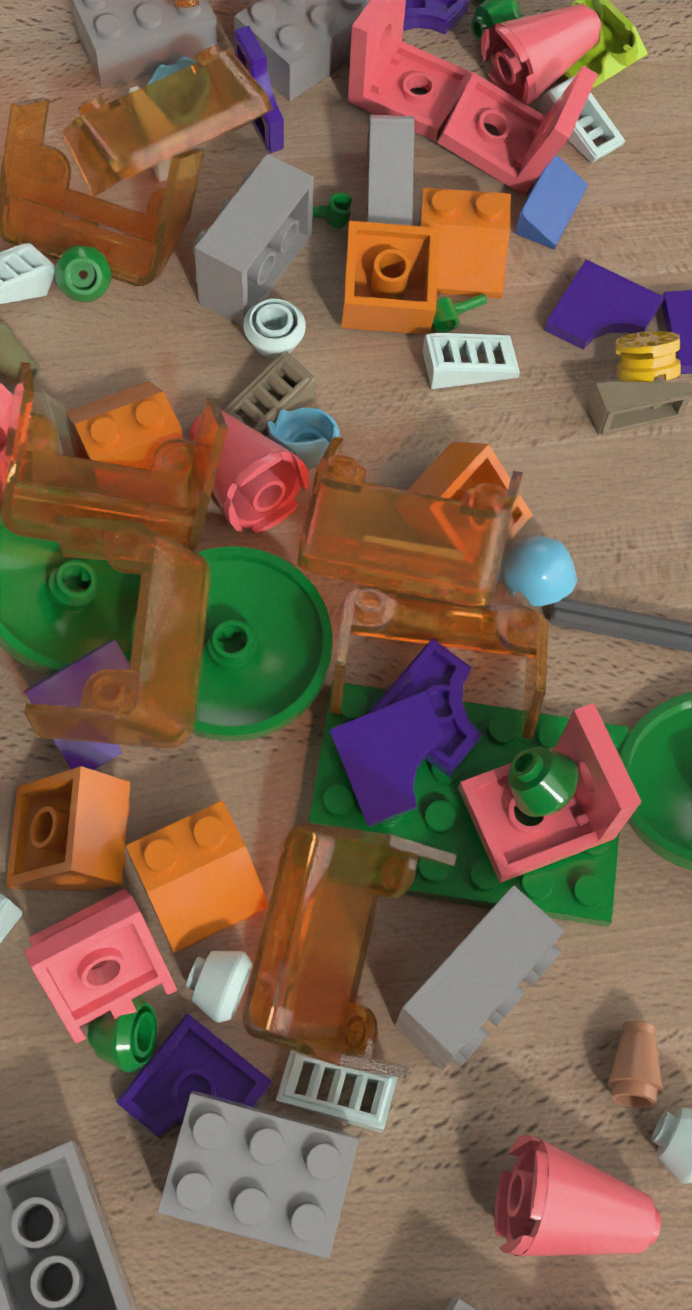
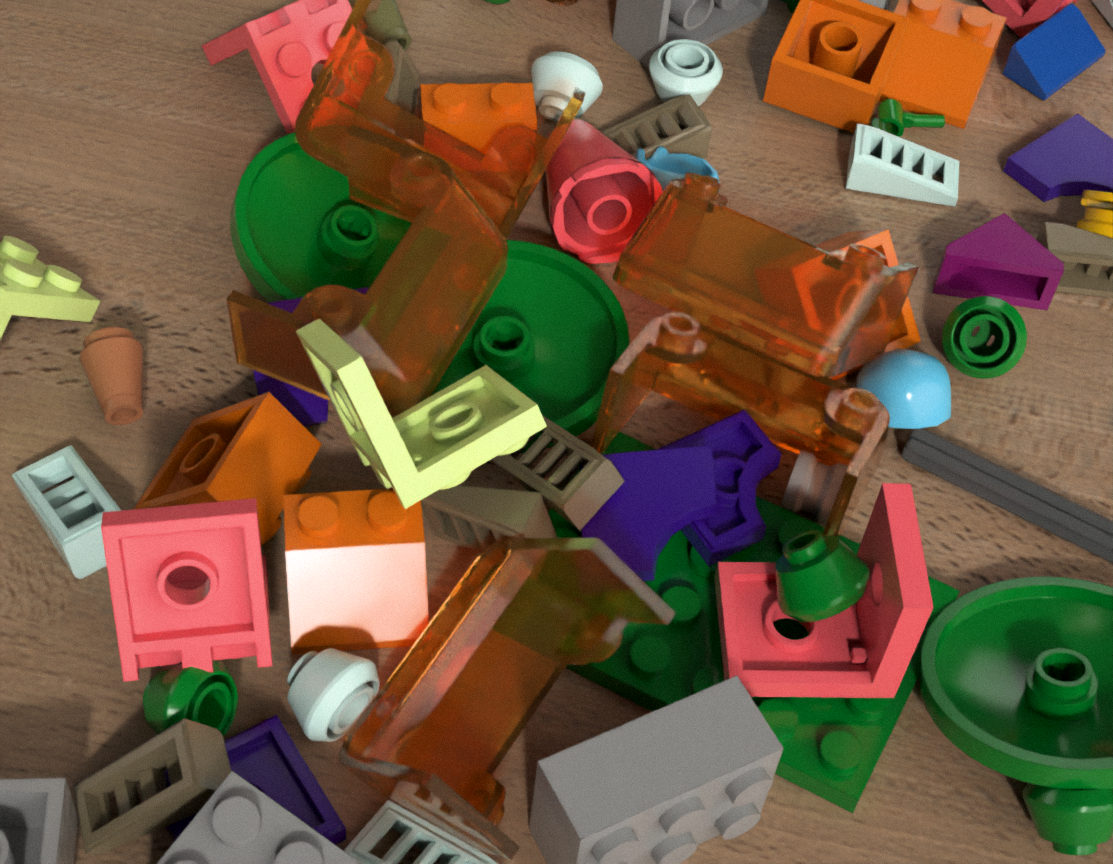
camera: 20 degrees right, 15 degrees down
(157, 1091) = (195, 768): none -> dark tan slope
(183, 375) = (555, 79): none -> light aqua cone
(201, 768) = (432, 441): none -> yellowish green bracket
(282, 802) = (486, 515): none -> dark tan slope
(349, 764) = (585, 492): none -> dark tan slope
(501, 679) = (813, 486): none -> light grey wheel
(572, 430) = (999, 263): none -> magenta slope
(582, 504) = (971, 353): none -> green cone

